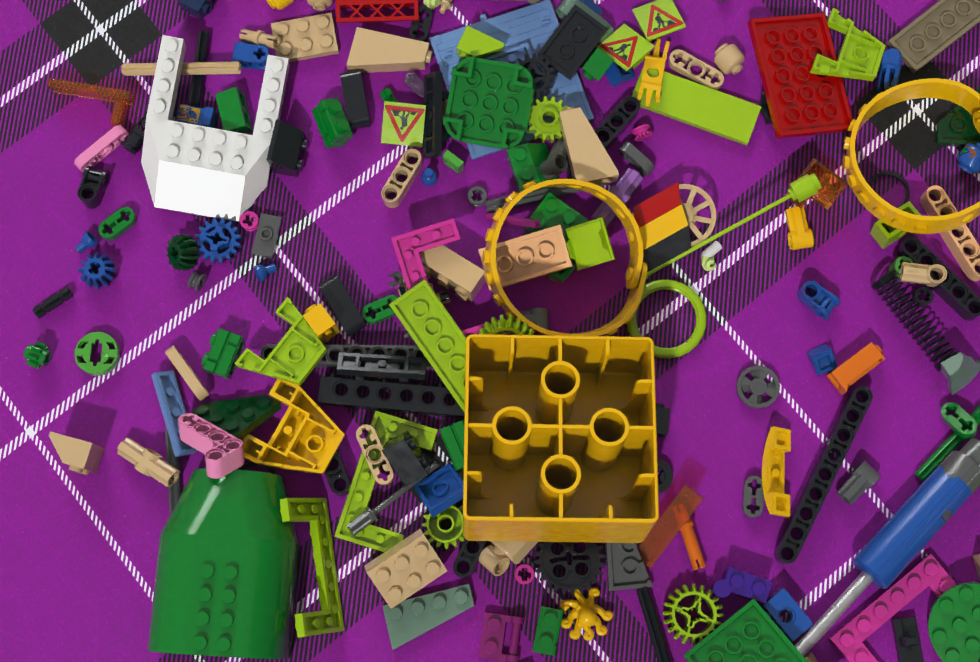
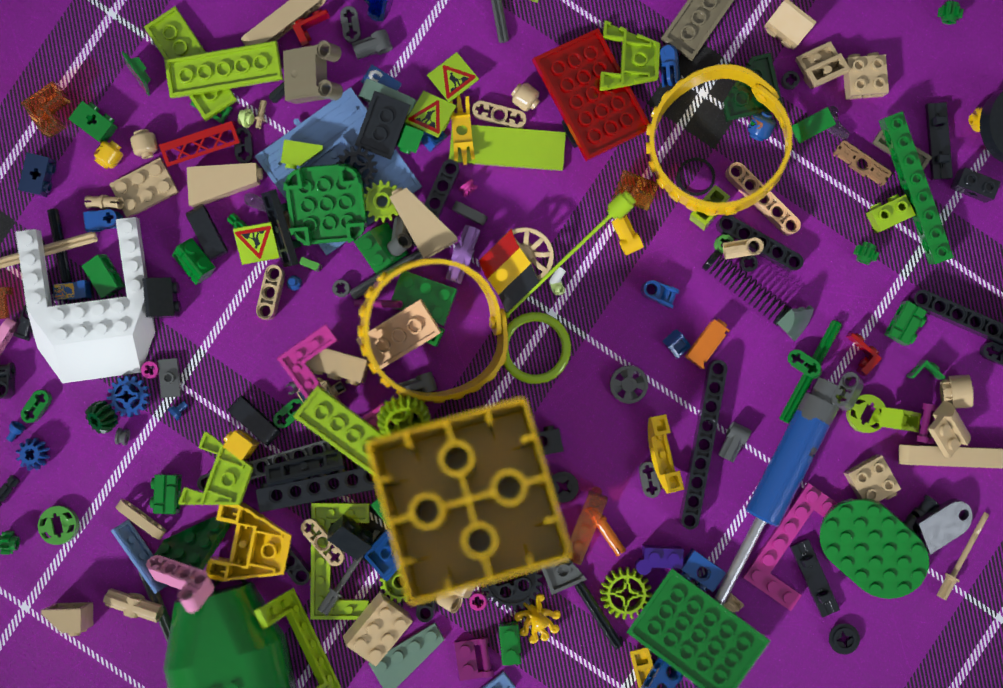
camera: 15 degrees left, 10 degrees up
(589, 244) = (449, 309): lime piece -> none

